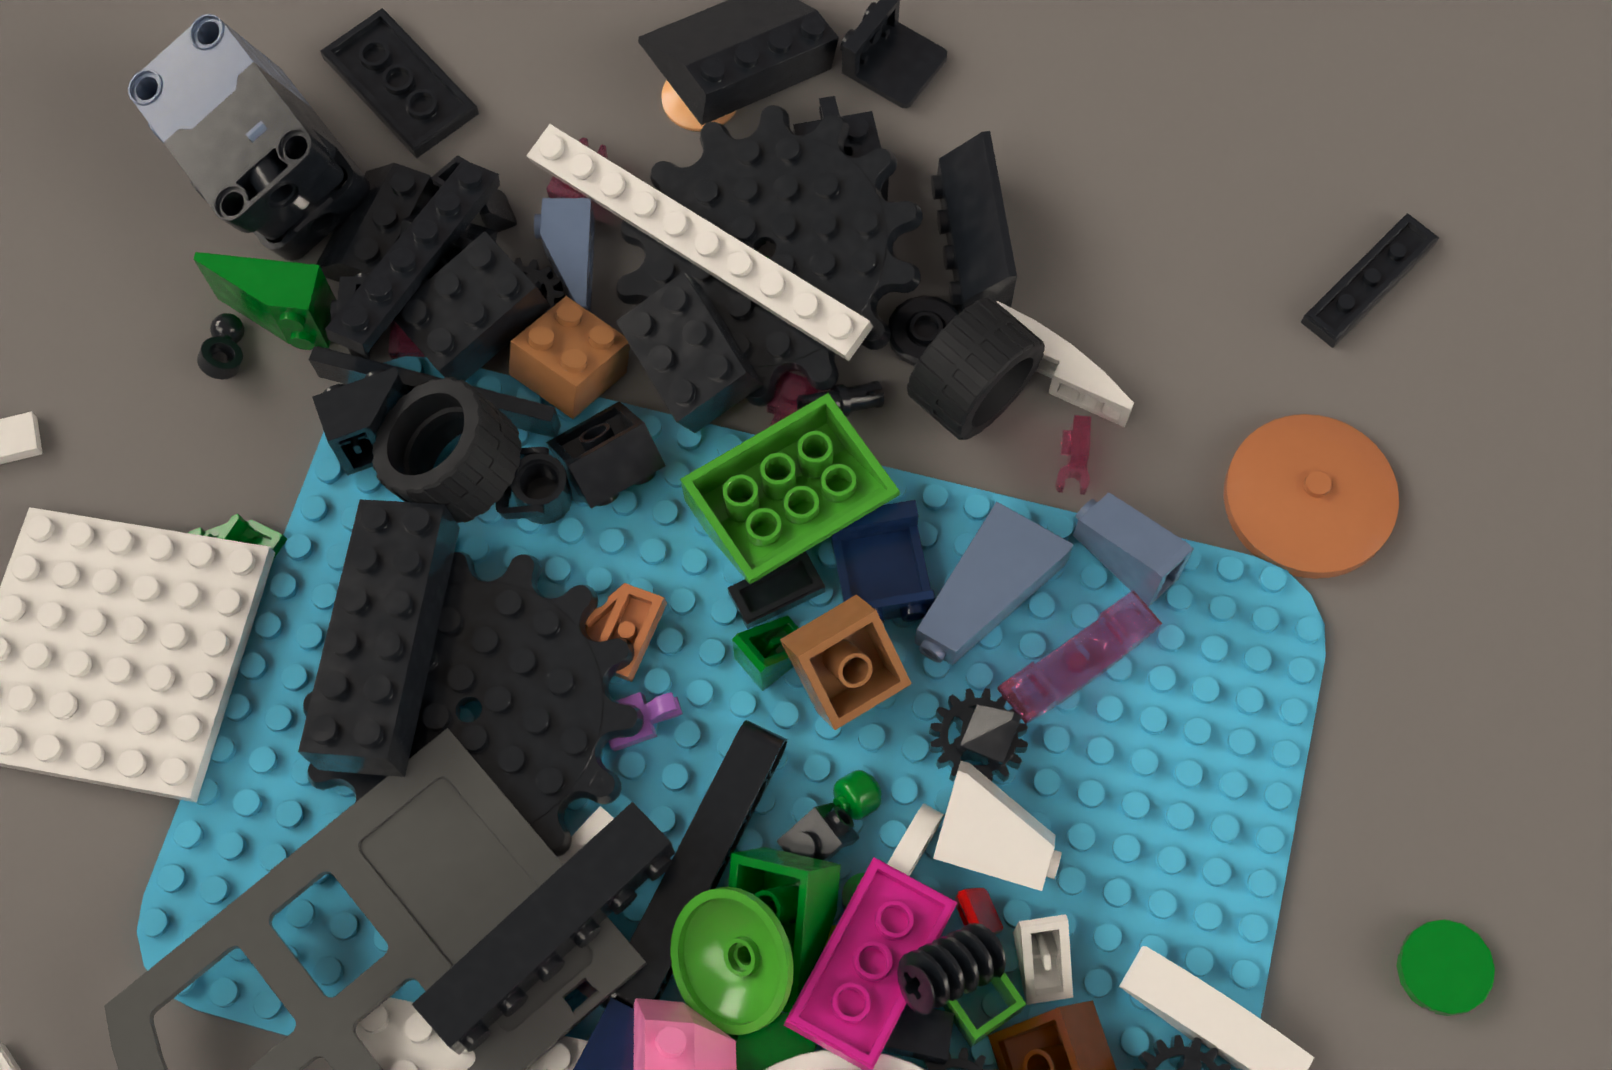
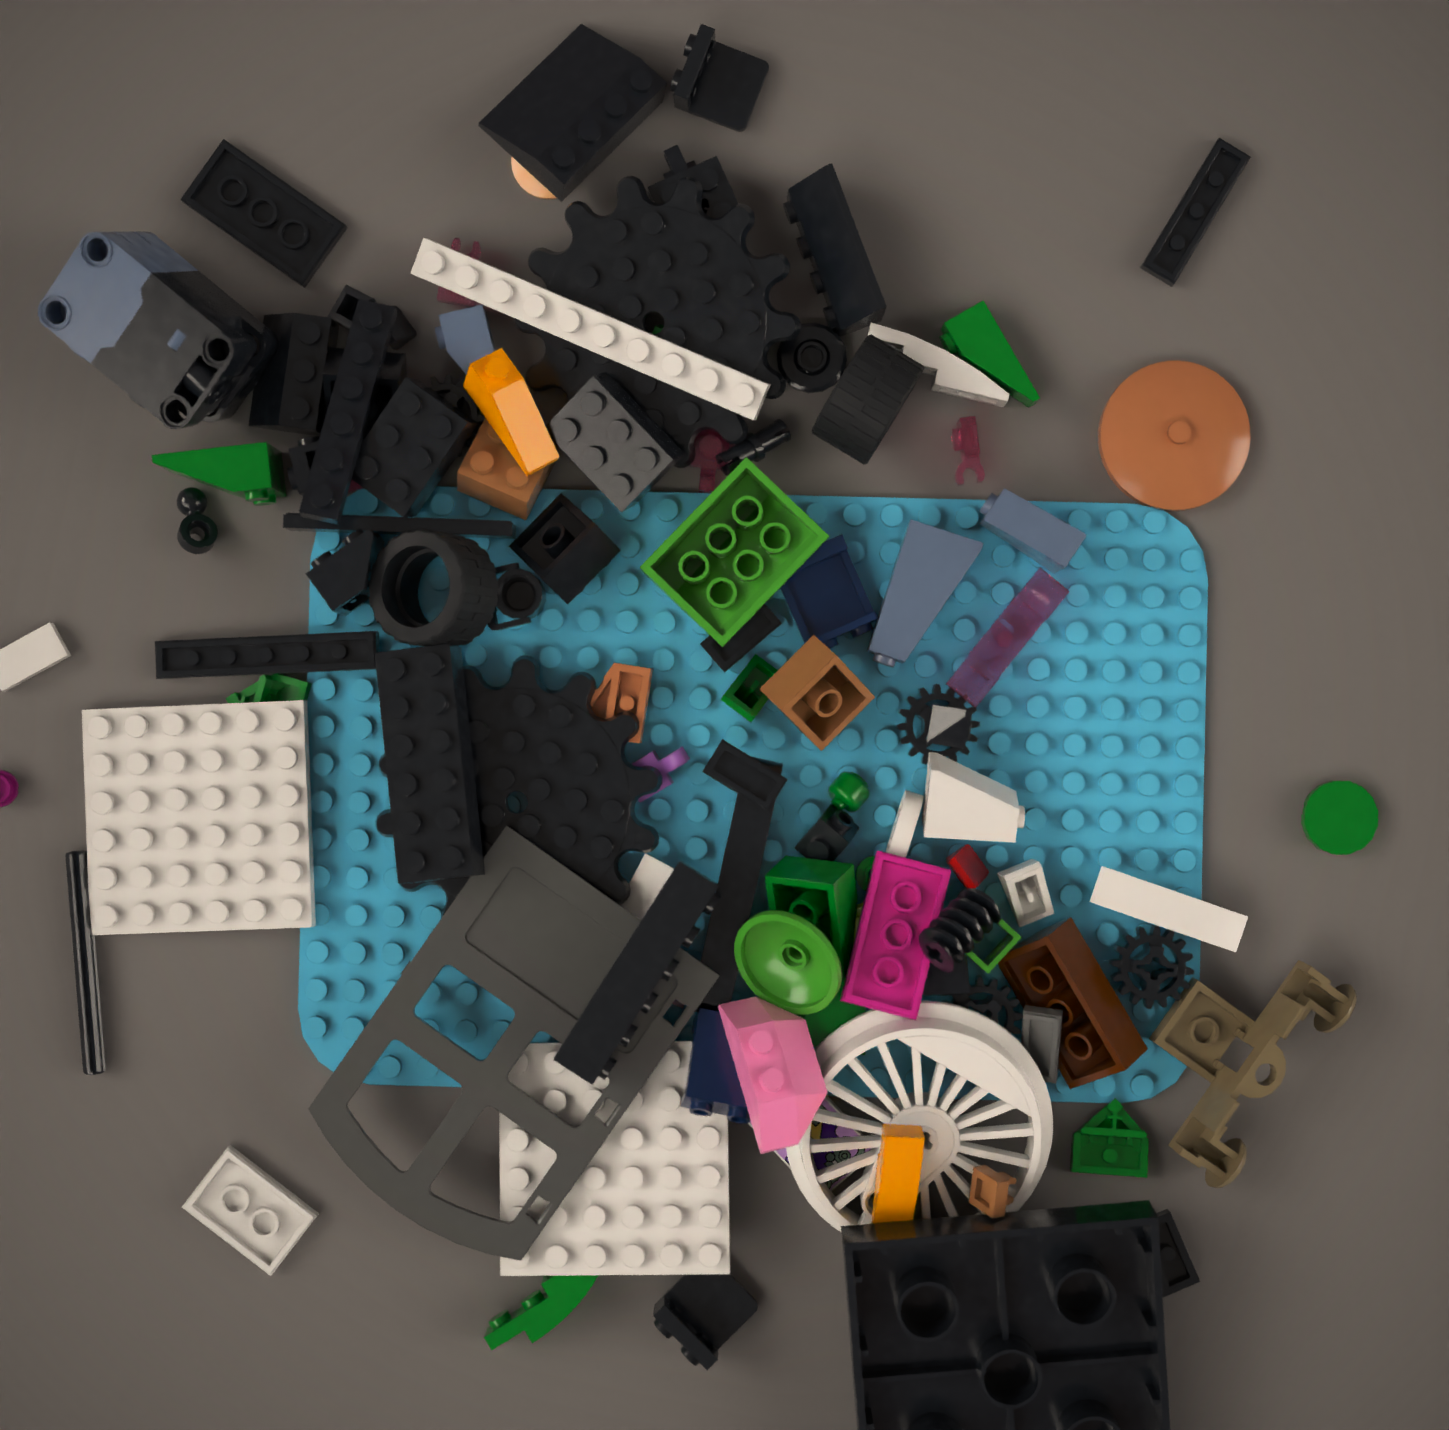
camera: 15 degrees left, 20 degrees up
(244, 494) = (266, 655): none -> black tile
(586, 292) = (510, 410): none -> light orange slope
(738, 735) = (744, 775): none -> black tile
(1114, 347) = (980, 342): none -> green slope

